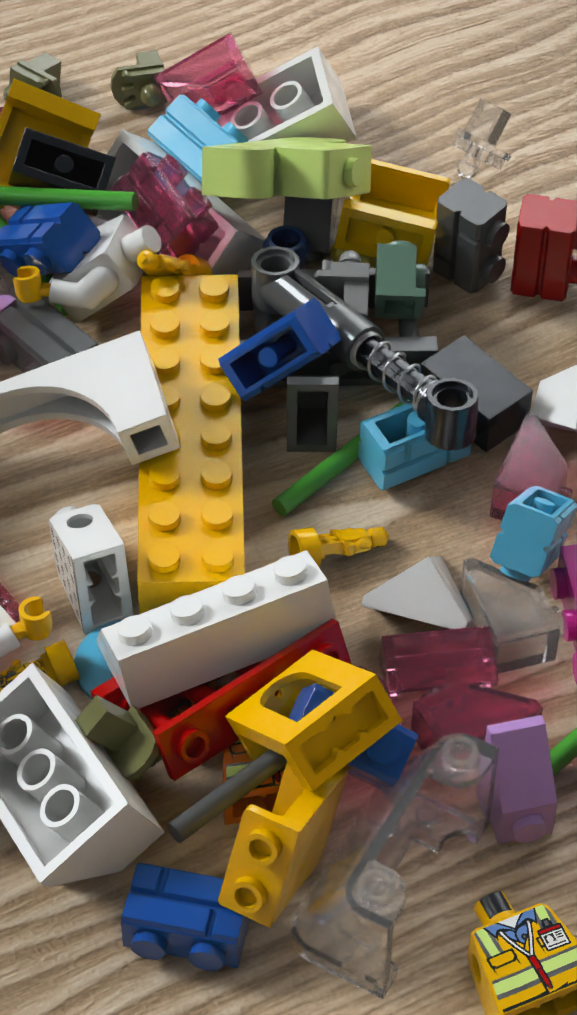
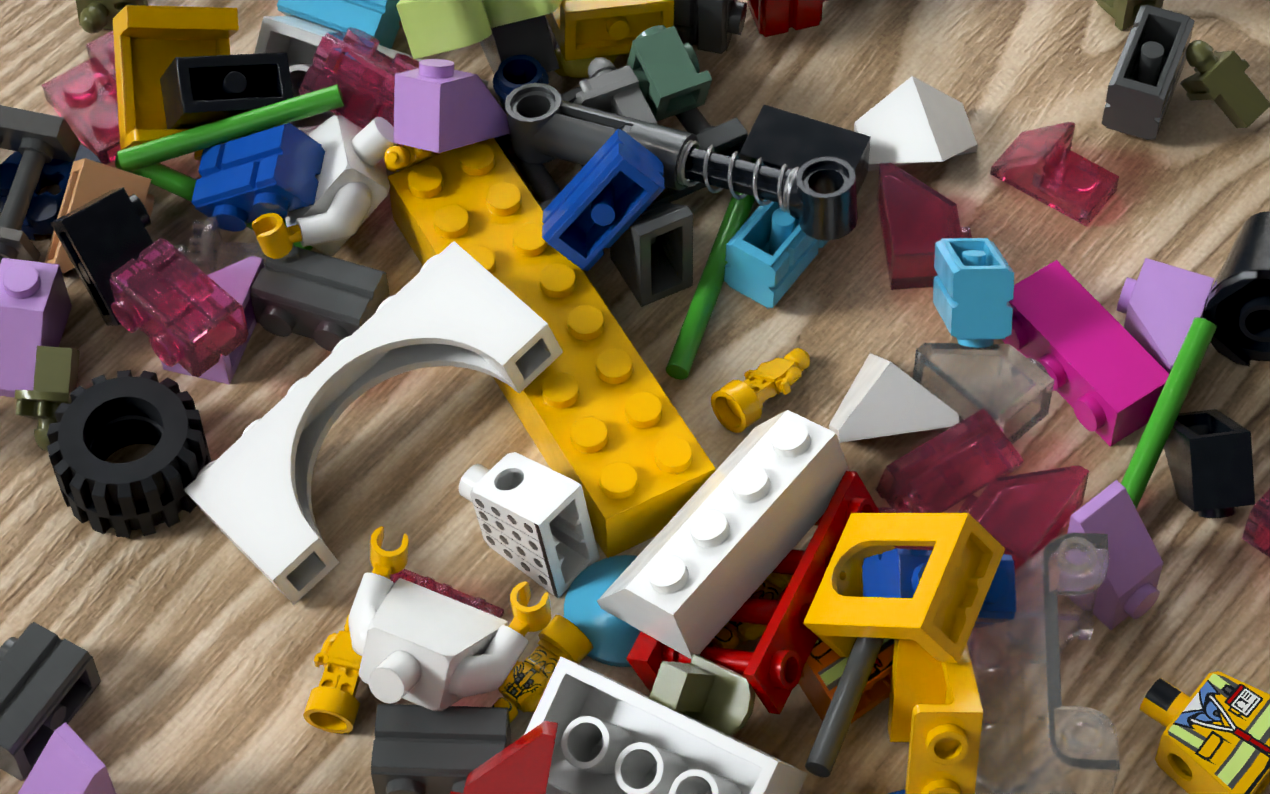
camera: 25 degrees left, 5 degrees up
(201, 237) = (444, 108): none -> lavender slope

